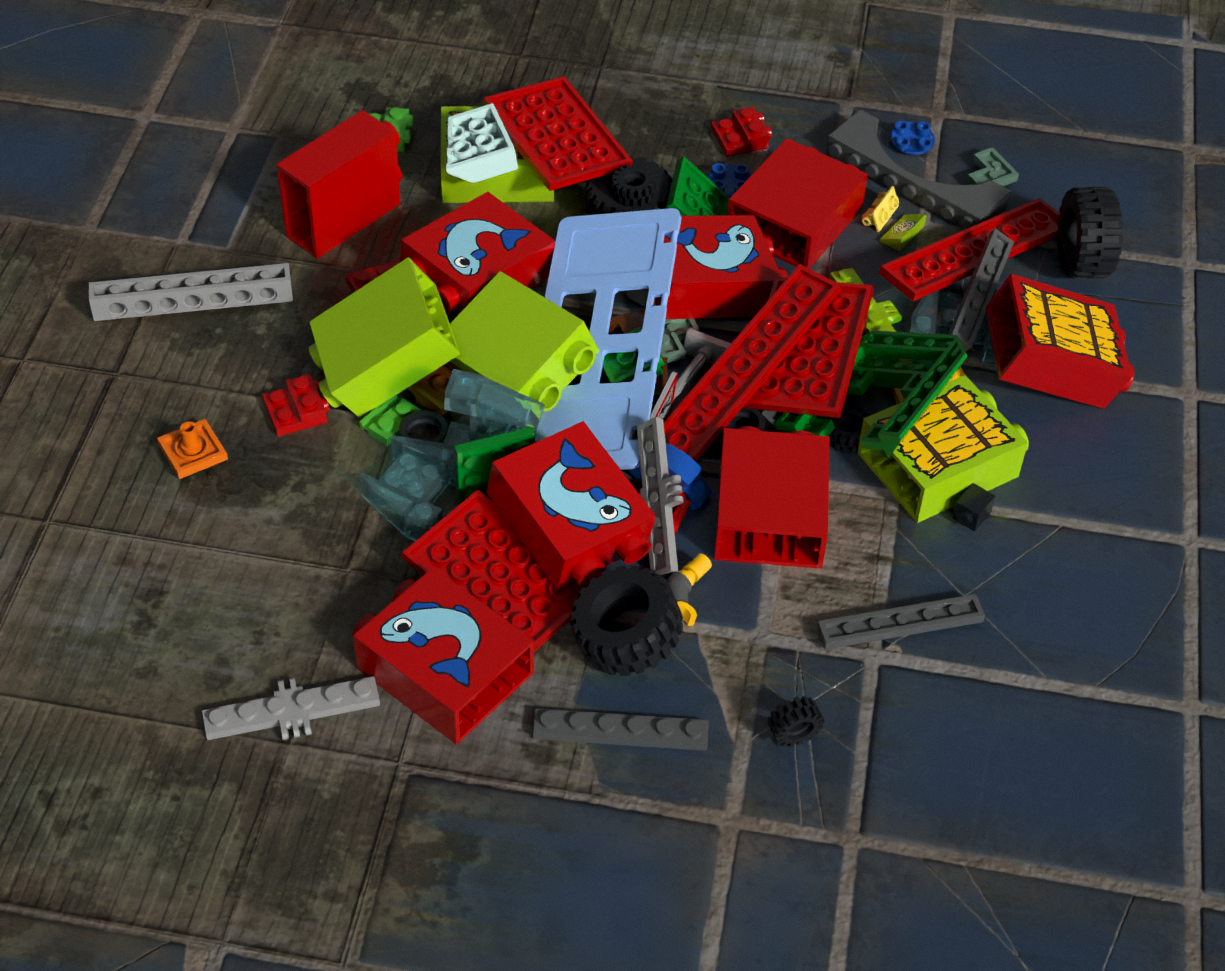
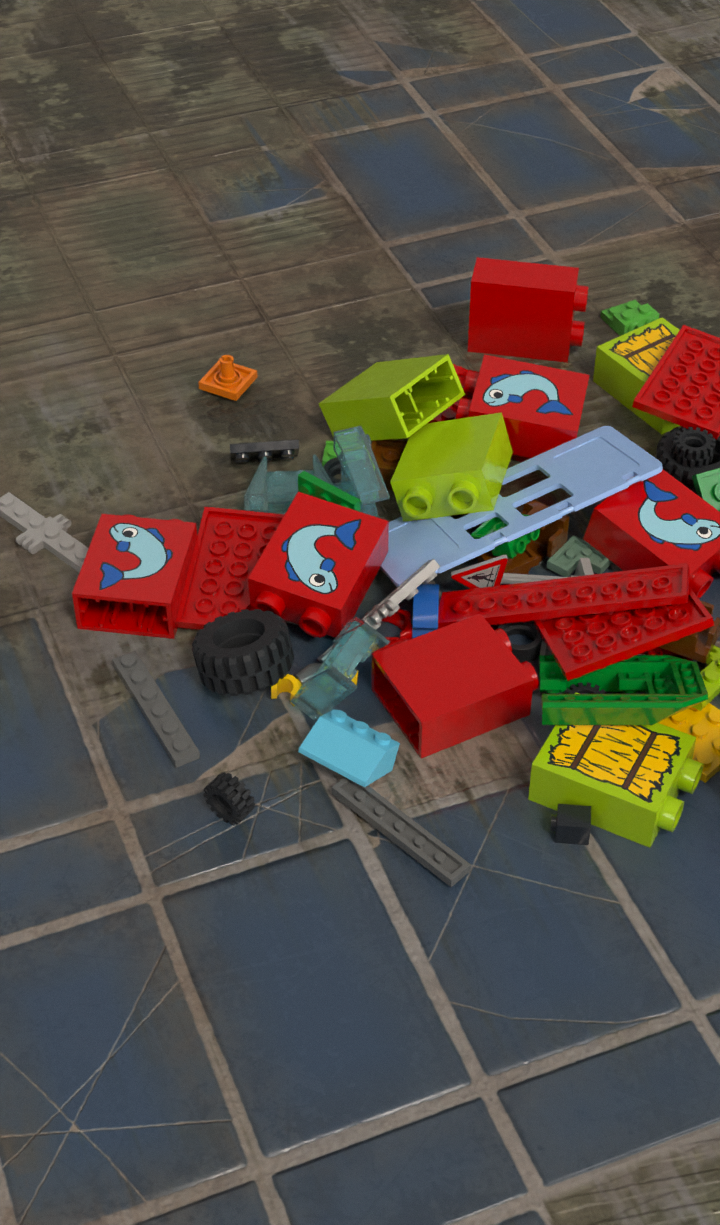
camera: 60 degrees right, 5 degrees down
(190, 292) = (364, 308): light grey brick -> none
(296, 406) = (305, 406): red plate -> none
(343, 471) = (284, 449): none -> black plate
(479, 145) = (629, 347): light aqua wedge -> none
(724, 551) = (333, 678): none -> clear light blue wedge
(794, 605) = (350, 748): none -> medium azure slope

